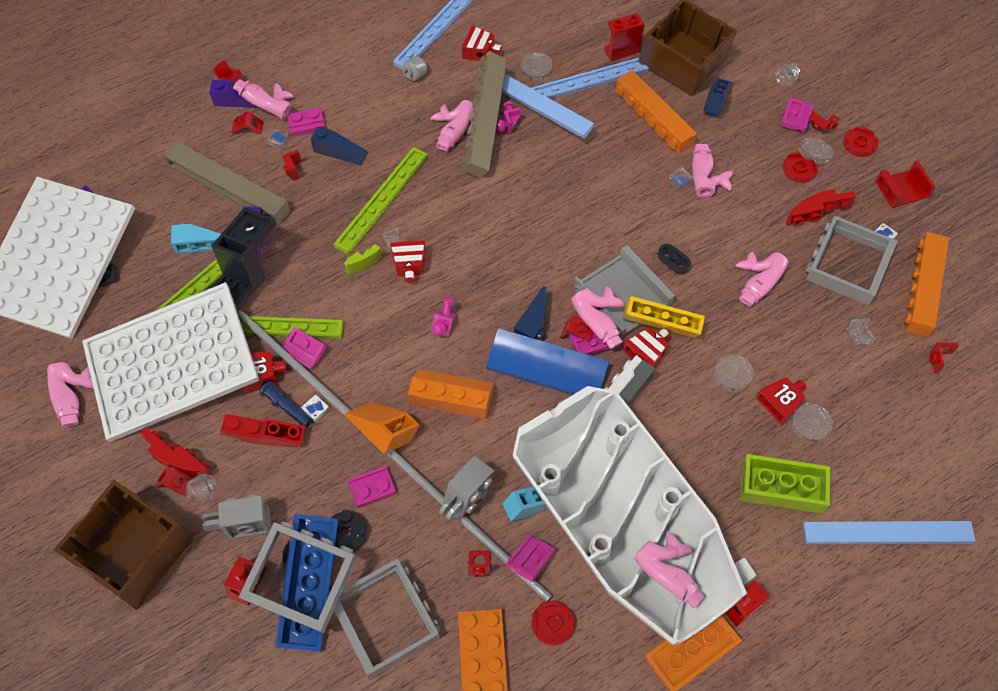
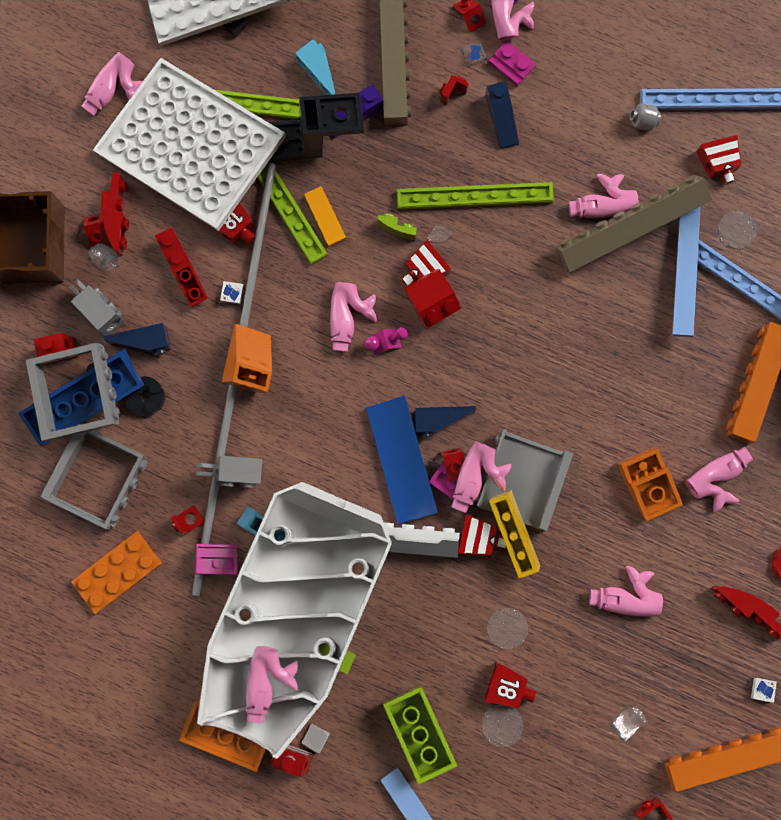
camera: 55 degrees right, 20 degrees up
(279, 399) = (218, 259): dark blue pin -> none
(299, 498) = (148, 339): none -> dark blue slope
(304, 348) = (278, 242): dark pink plate -> none
(311, 304) = (325, 216): none -> light orange tile
(371, 487) = (195, 389): dark pink plate -> none
(406, 341) = (340, 316): none -> bright pink piece
(438, 265) = (432, 298): none -> red slope
(450, 393) = (321, 394): orange slope -> none
(511, 117) = (650, 249): dark pink piece -> none
(552, 623) = (177, 610): red tile -> none
(674, 259) = (594, 505): black plate -> none
(680, 178) = (696, 455): clear tile -> none
(682, 214) = (650, 483): none -> orange slope
(861, 235) = (749, 700): light grey window -> none

